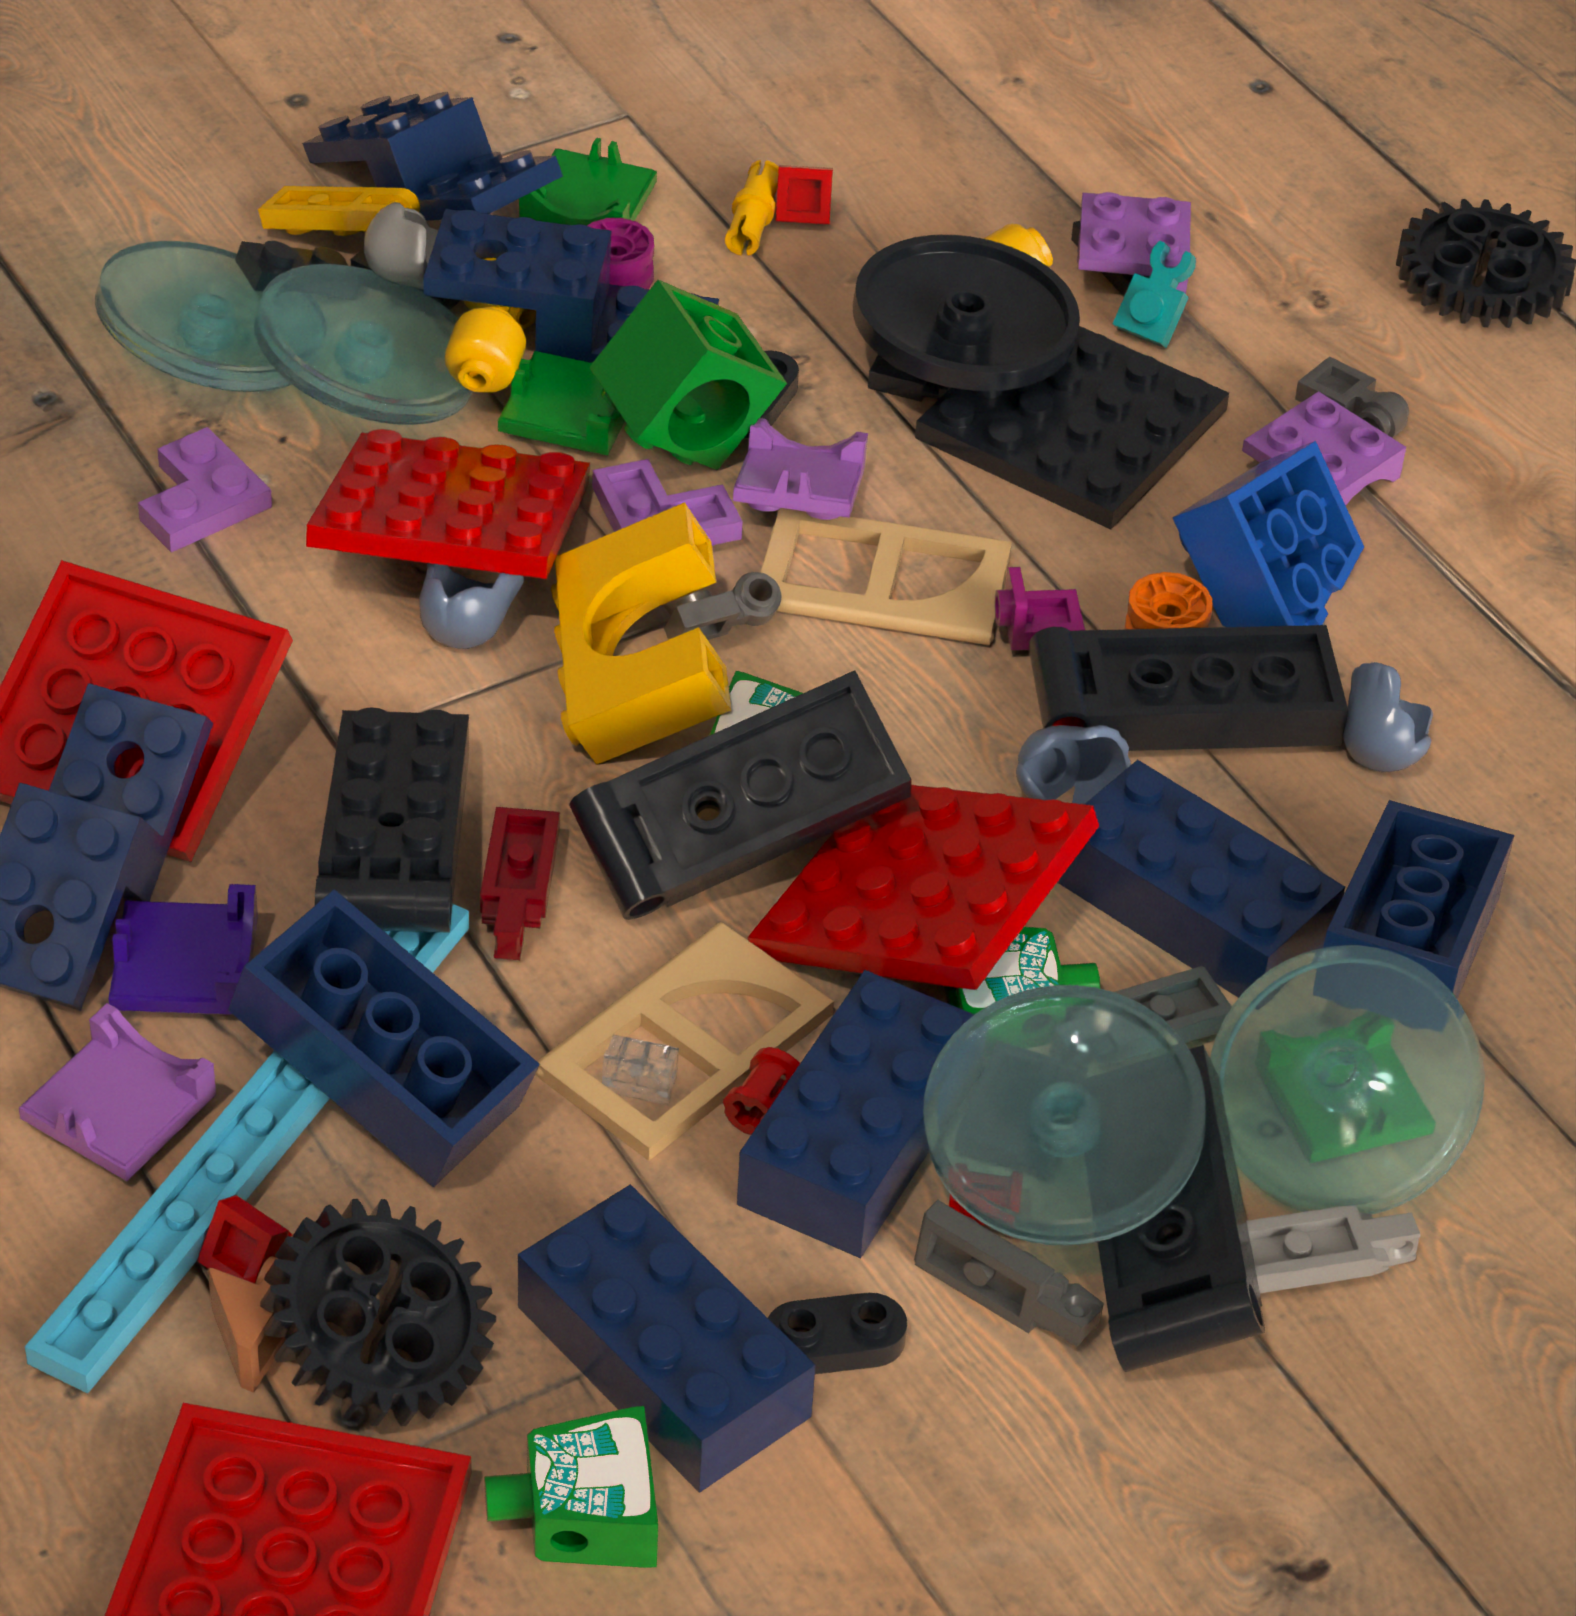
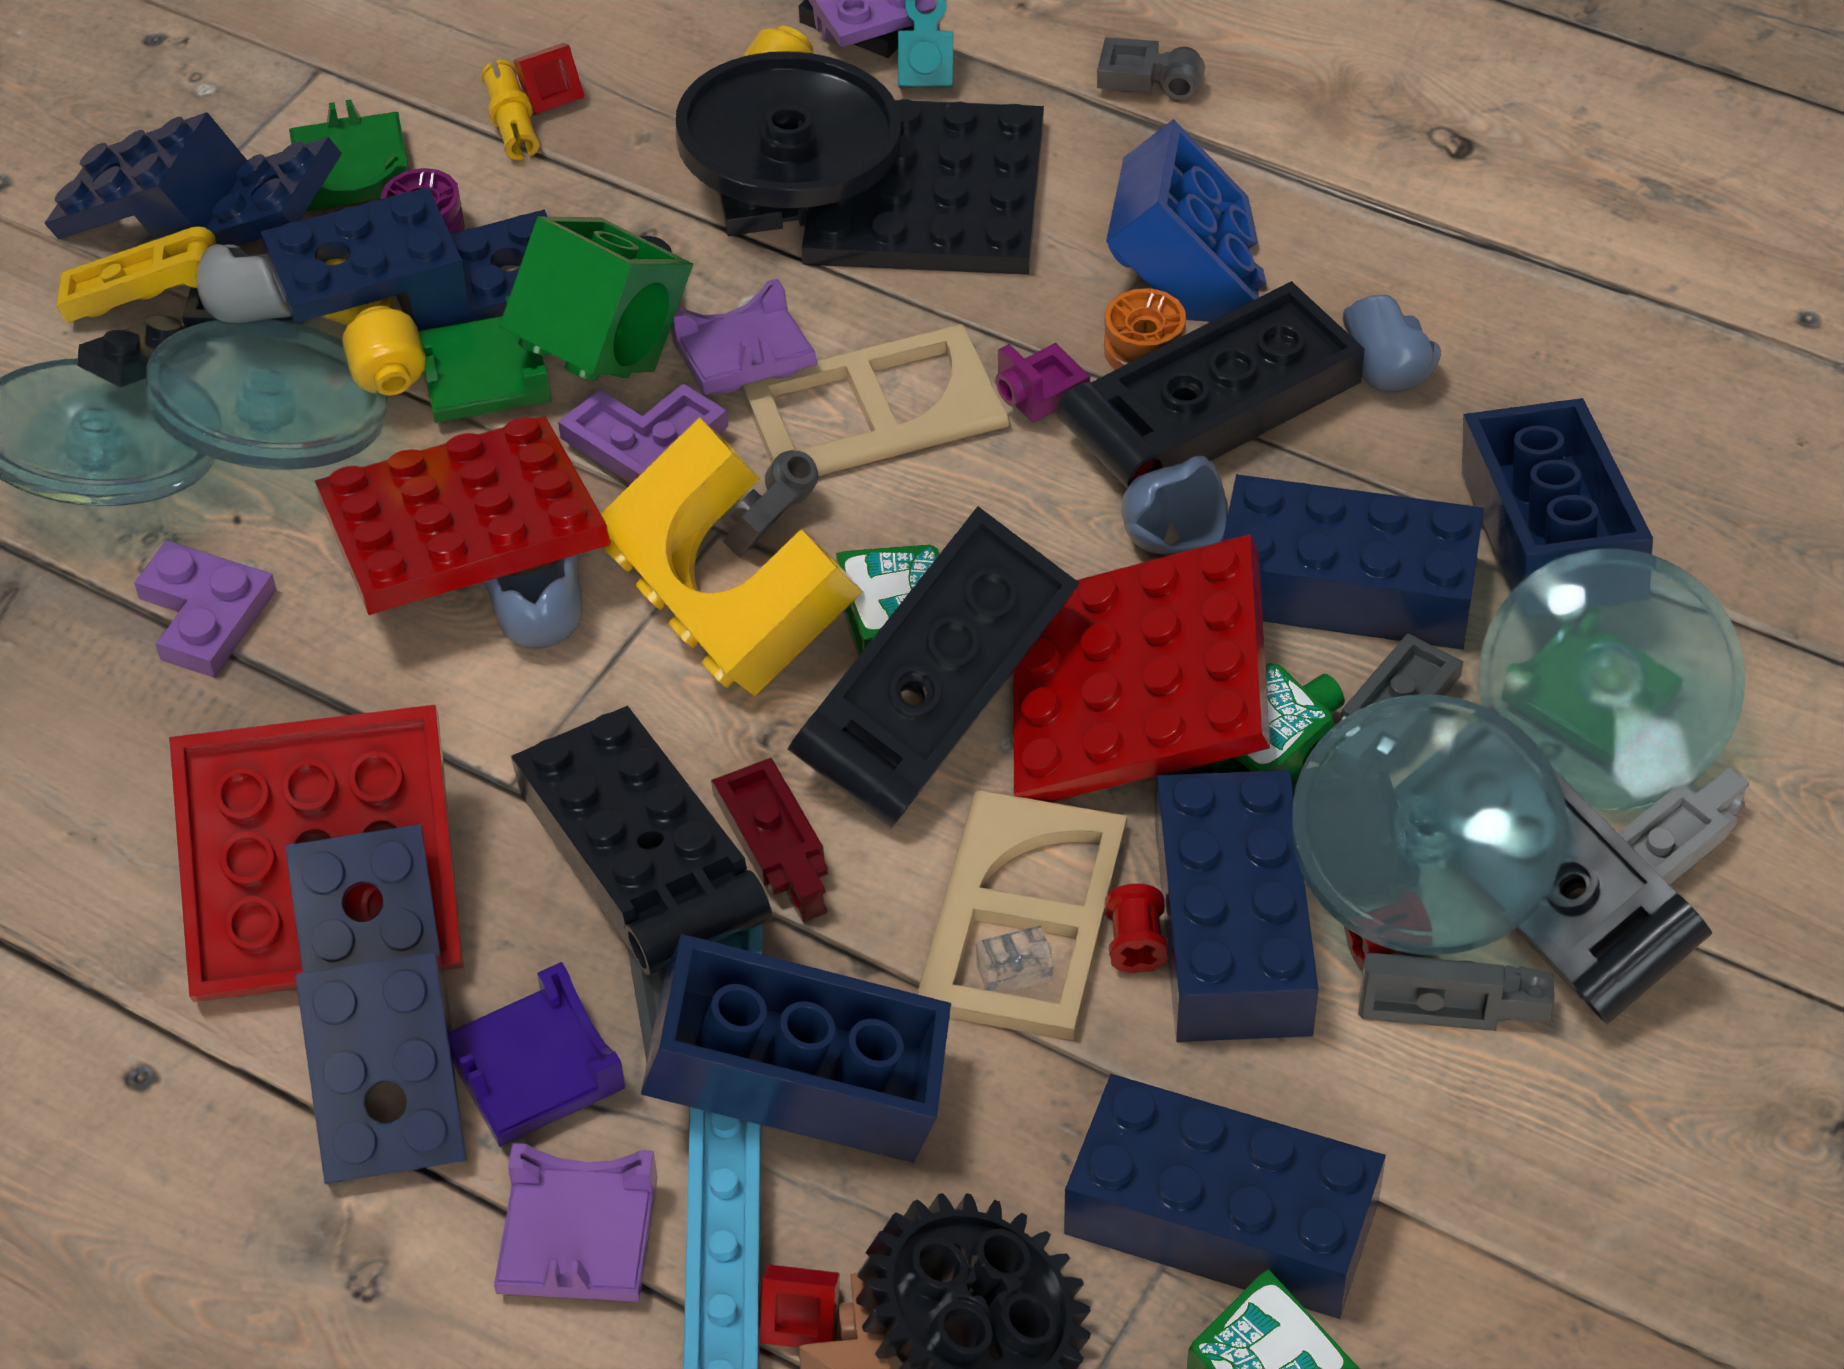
camera: 25 degrees left, 5 degrees up
(839, 1331) = (1353, 1110): black plate -> none
(1350, 446) = (1148, 104): medium lavender piece -> none

